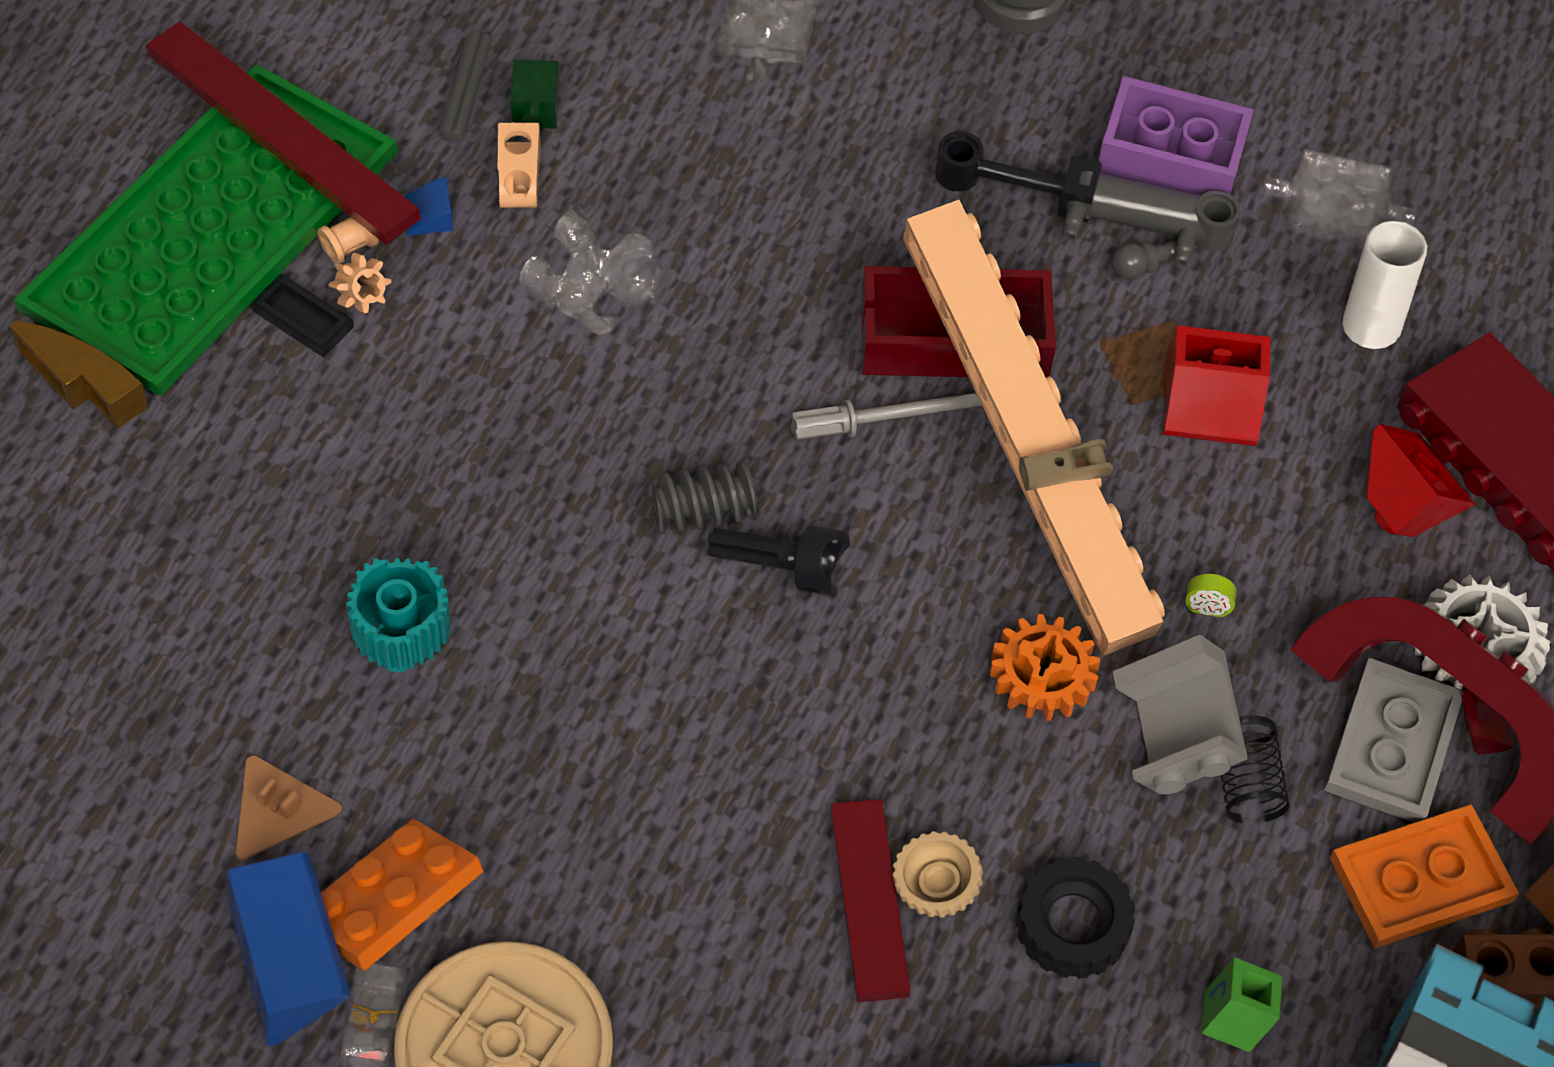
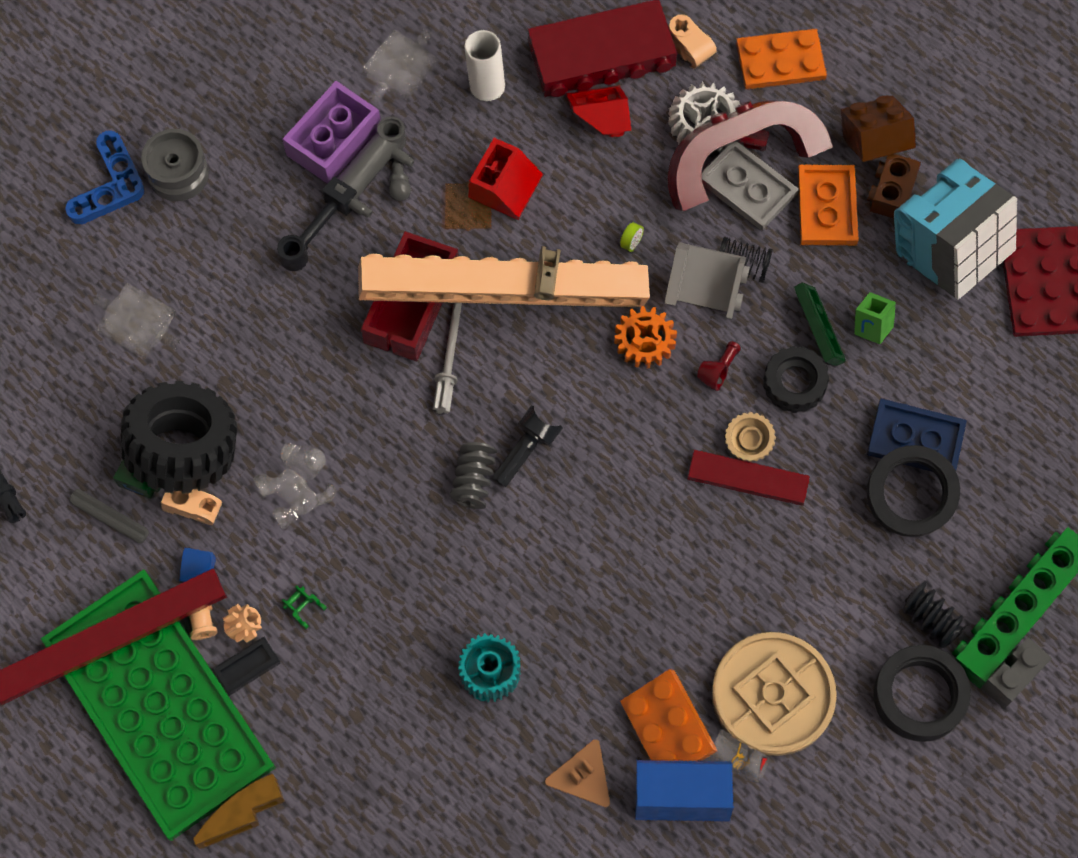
camera: 65 degrees left, 10 degrees up
(403, 347) = (308, 599): none -> green piece
(573, 137) = (171, 464): none -> black tyre
(1030, 781) = (711, 370): none -> dark red bar
(1192, 924) = (820, 324): none -> dark green tile

